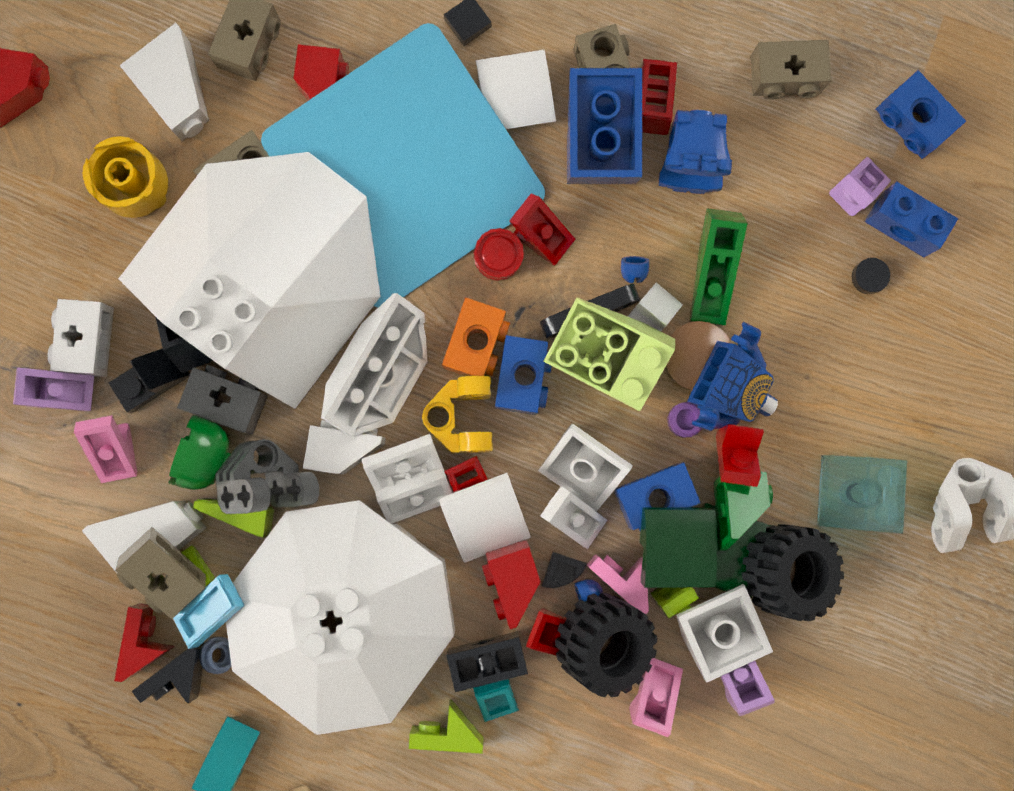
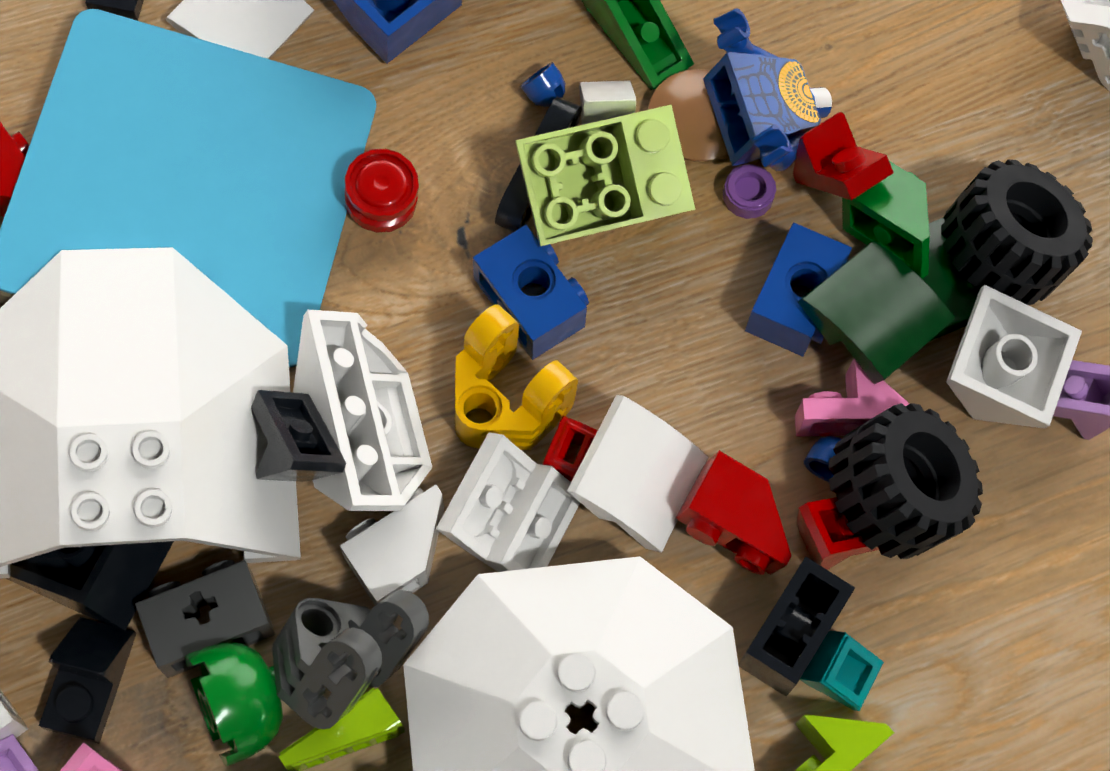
camera: 40 degrees left, 15 degrees down
(332, 355) = (296, 437): none -> black slope
(475, 318) = (424, 273): orange brick -> none
(541, 230) = (406, 123): red slope -> none
(562, 570) = (778, 460): black tile -> none
(573, 517) = (731, 390): white slope -> none
(585, 467) = (692, 323): white slope -> none
(657, 698) = (1017, 495): bright pink slope -> none
(674, 600) = (925, 374): lime tile -> none
(862, 493) = (1002, 100): clear light blue slope -> none

